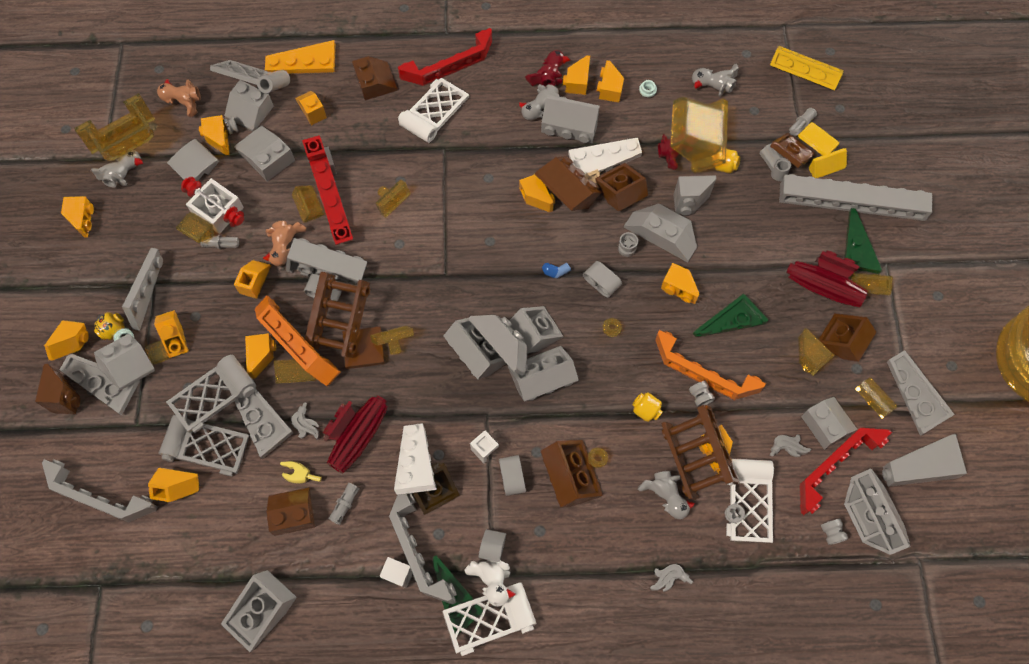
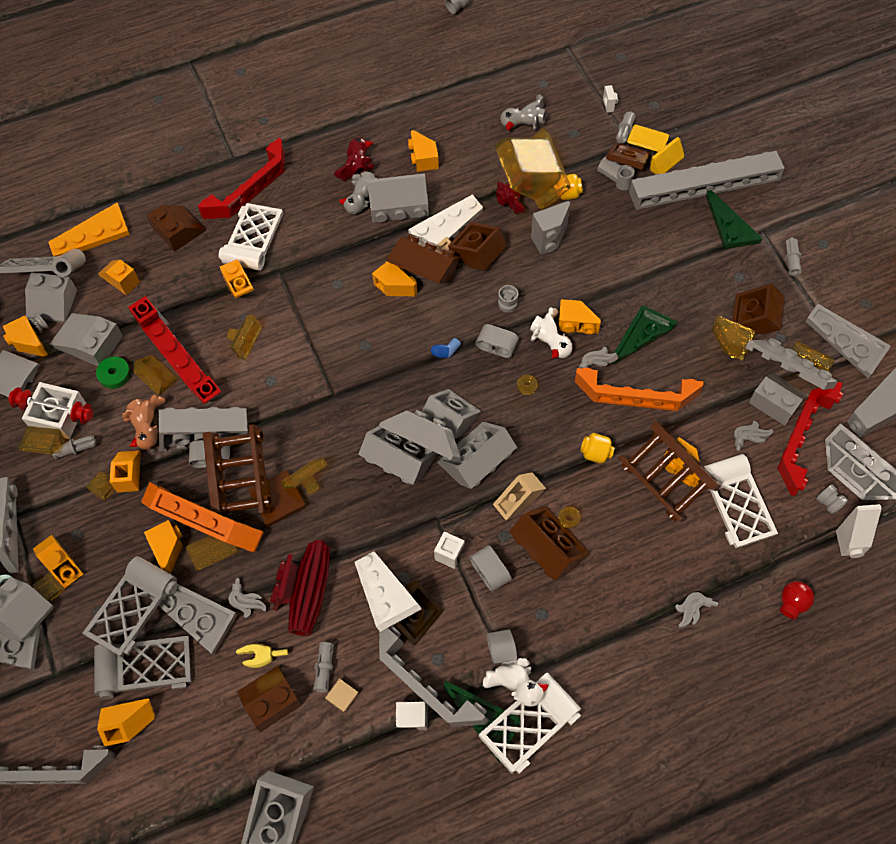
camera: 20 degrees left, 5 degrees down
(227, 283) = (101, 486): none -> clear yellow plate
(277, 196) = (115, 380): none -> green piece
(349, 533) = (342, 695): none -> tan tile
(404, 144) = (236, 278): none -> light orange slope
(563, 422) = (519, 495): none -> tan slope
(577, 77) = (387, 157): light orange slope -> none
(648, 84) = (462, 145): light aqua plate -> none
(648, 286) = (546, 331): none -> white animal
(664, 229) = (537, 273): light grey wedge -> none
(666, 488) = (651, 520): light grey animal -> none
(683, 326) = (599, 358): none -> light grey piece
(701, 393) = (644, 415): light grey wheel -> none
(728, 514) = (724, 522): light grey bush -> none
(762, 606) = (796, 599): none -> red piece
(800, 89) = (609, 98): none -> white plate
(806, 67) = (600, 77): yellow fence -> none
(829, 278) = (717, 261): dark red plate -> none
(842, 570) = (858, 530): none -> white slope
(853, 395) = (790, 361): none -> light grey wing
(874, 282) = (757, 254): clear yellow slope -> none
(903, 298) = (793, 257): none -> light grey axle

